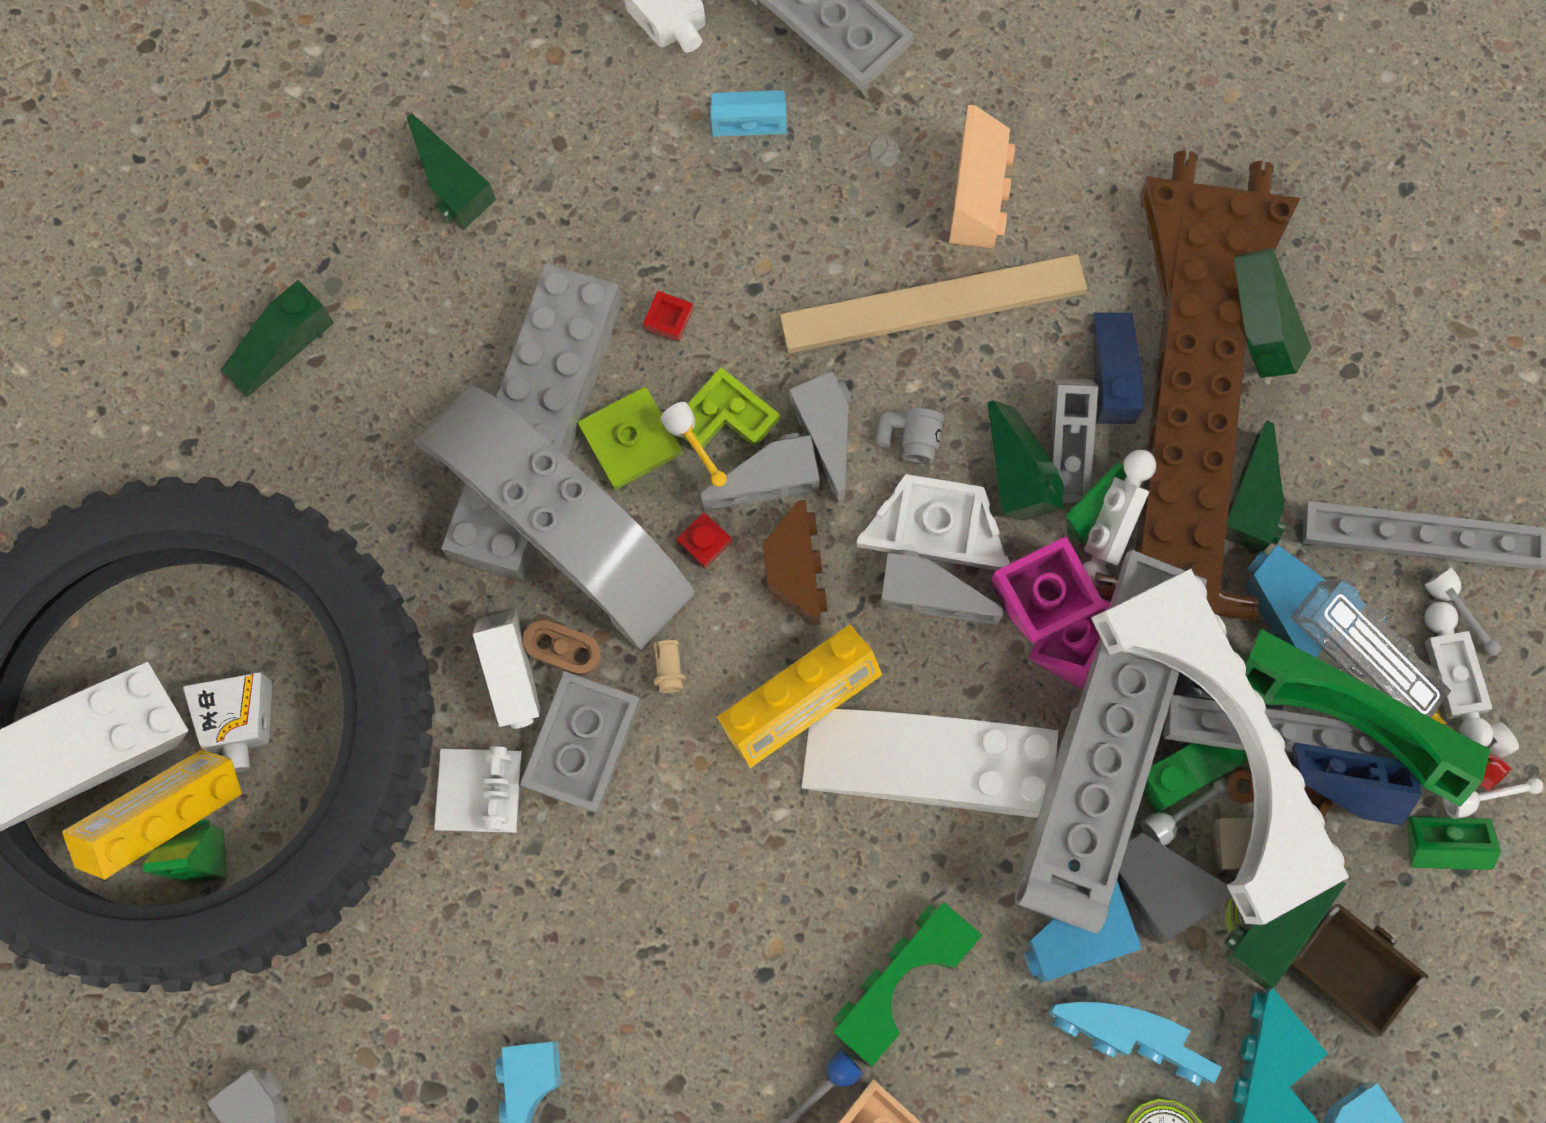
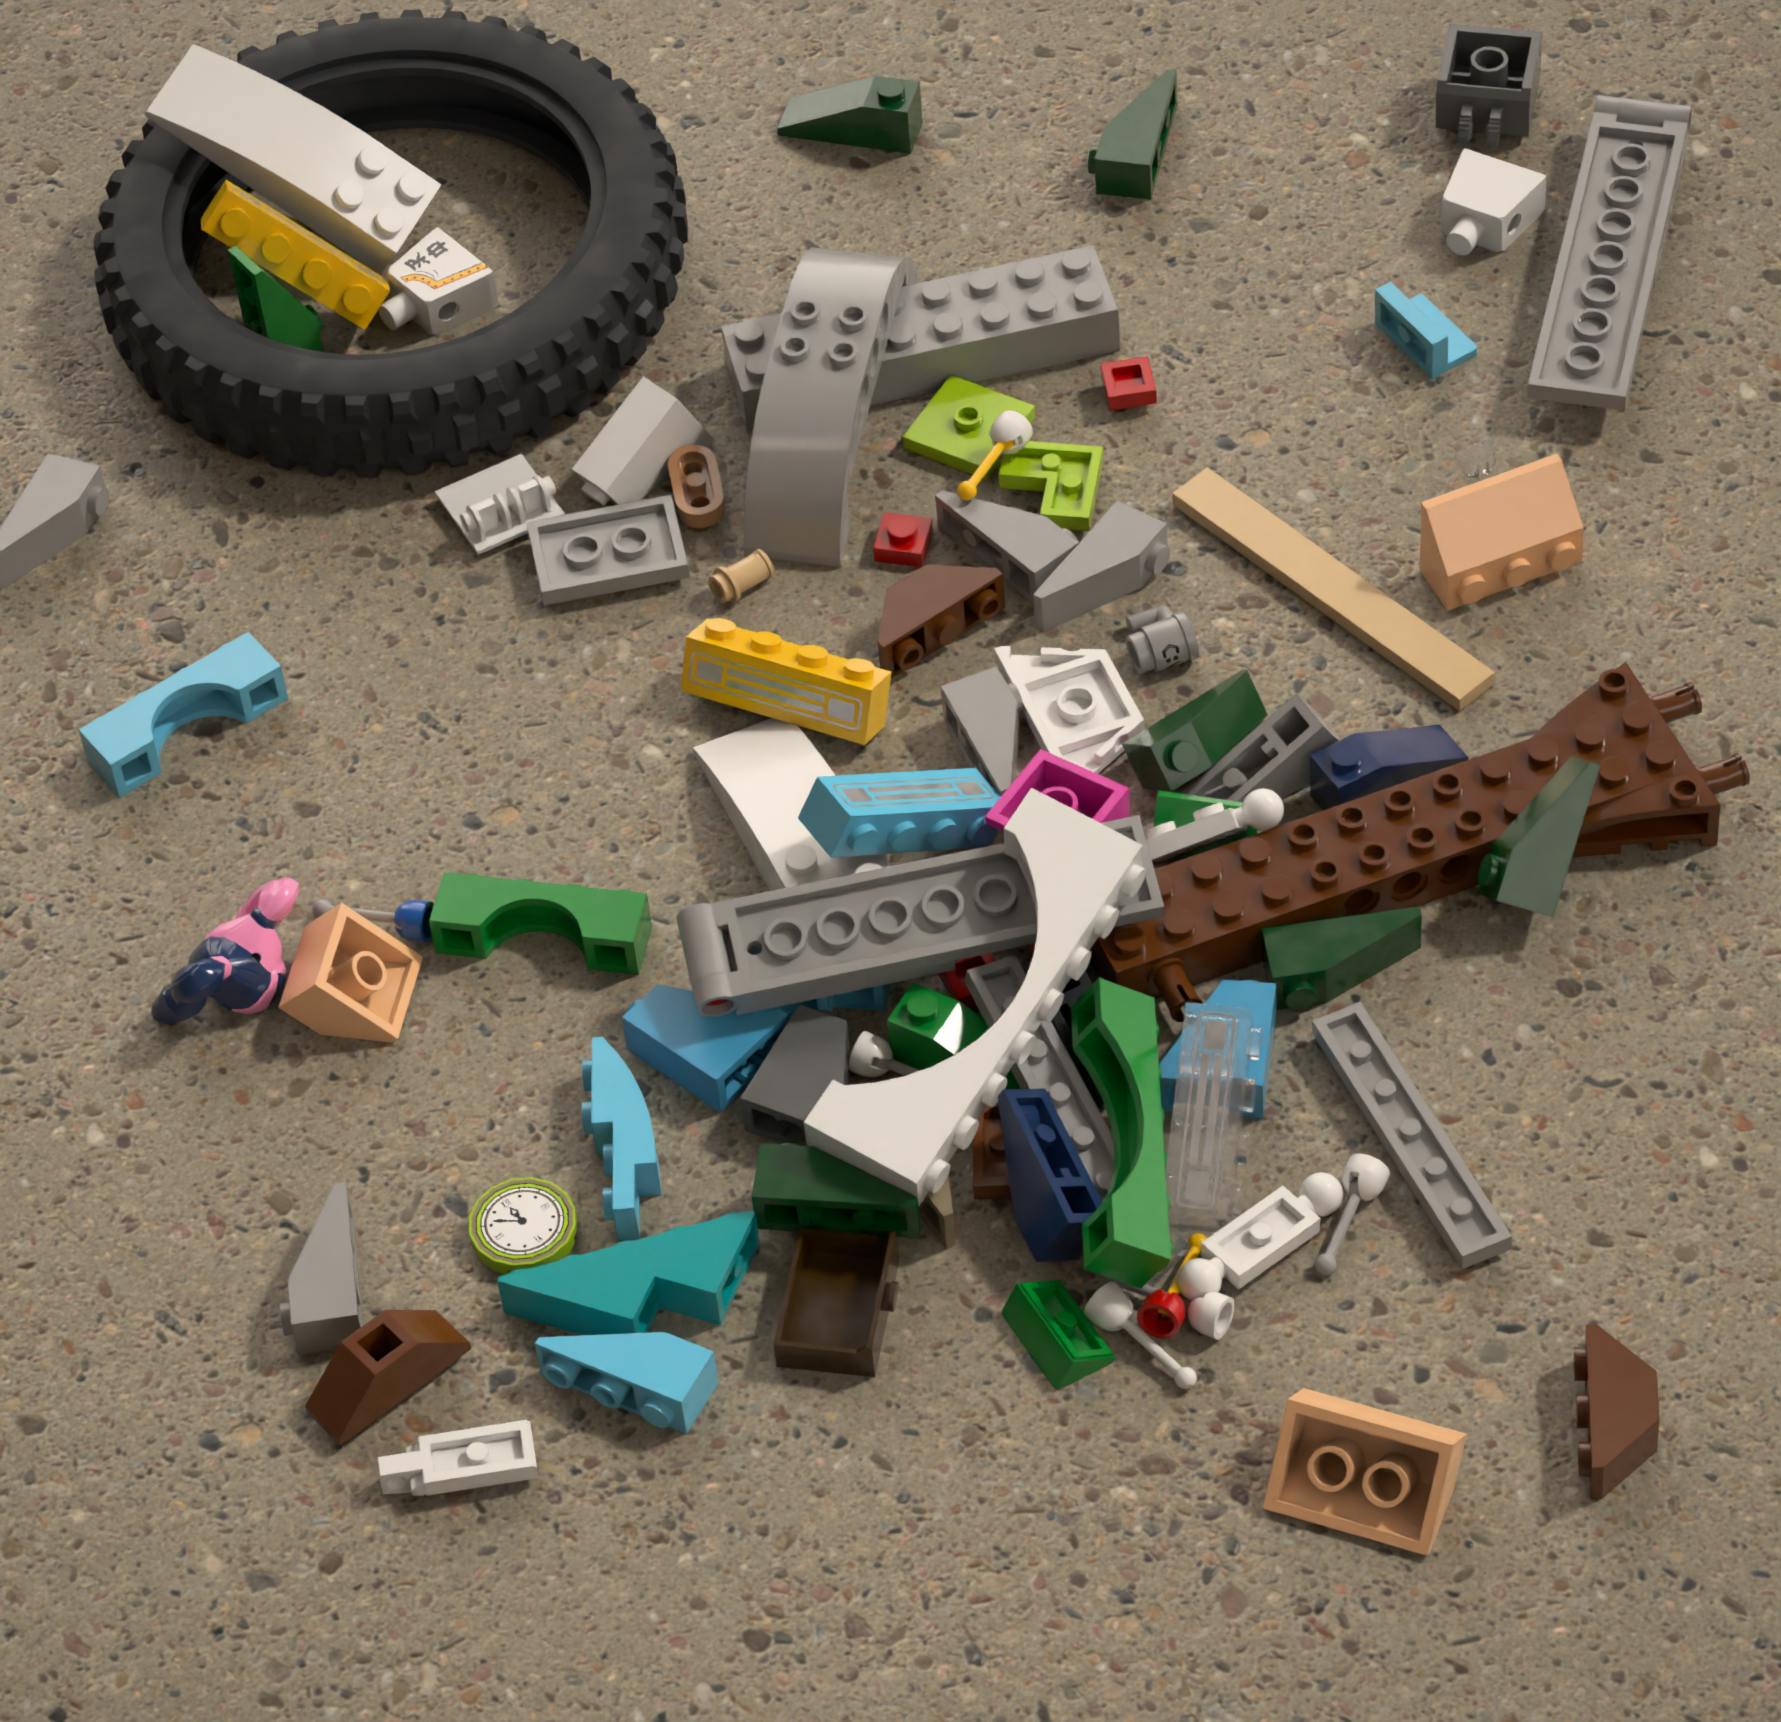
camera: 60 degrees right, 25 degrees down
(998, 694) = (900, 812): none -> medium azure brick

